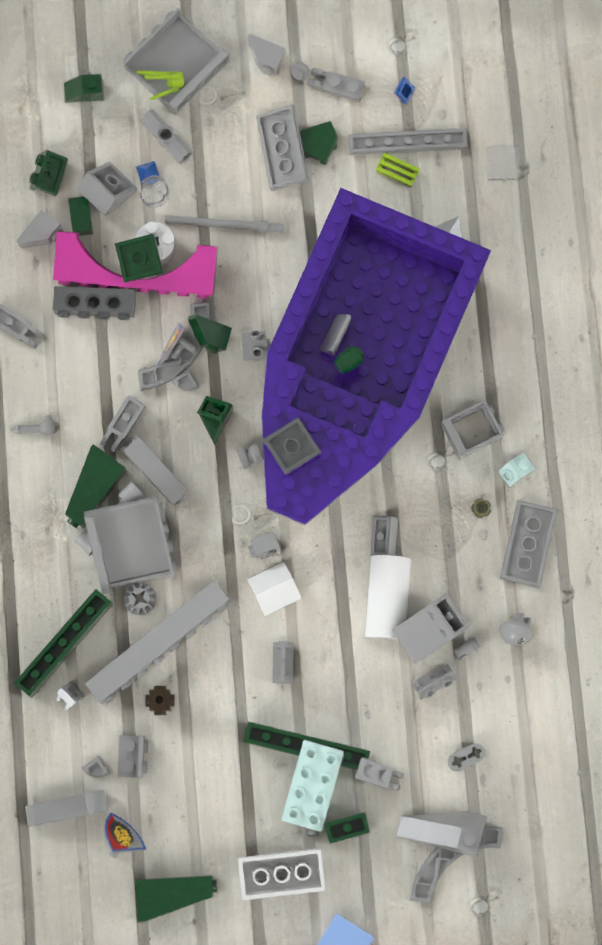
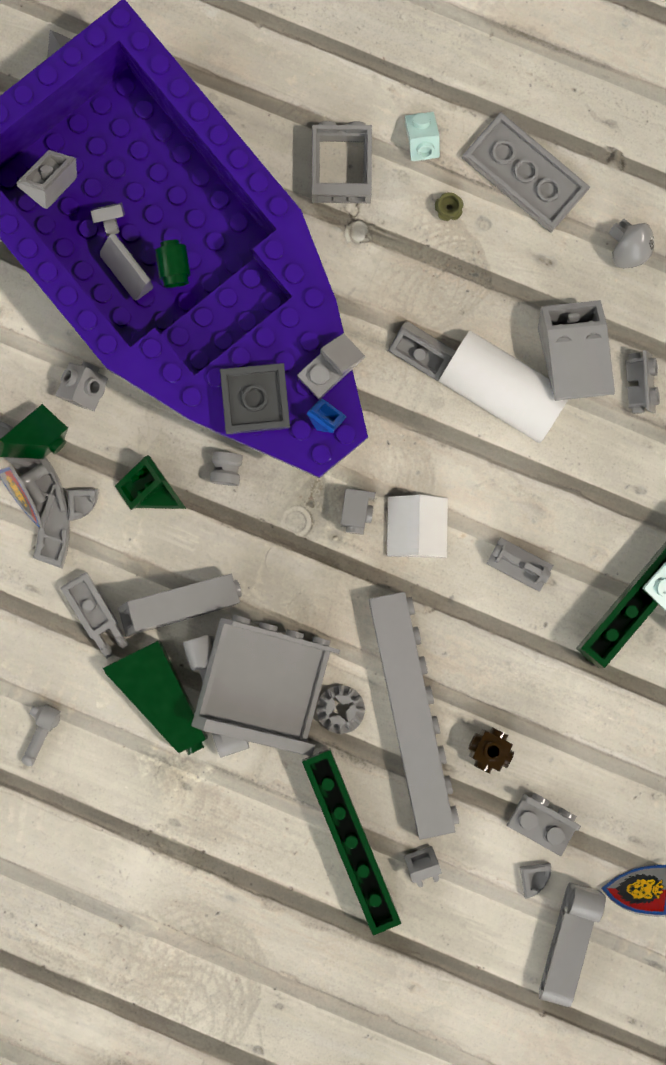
camera: 65 degrees left, 5 degrees up
(302, 492) = (325, 416): none -> blue slope
(334, 480) = (330, 365): none -> light grey slope
(360, 262) = (49, 178): none -> light grey slope
(361, 308) = (108, 215): none -> light grey tile
(467, 648) = (621, 319): light grey pin -> none

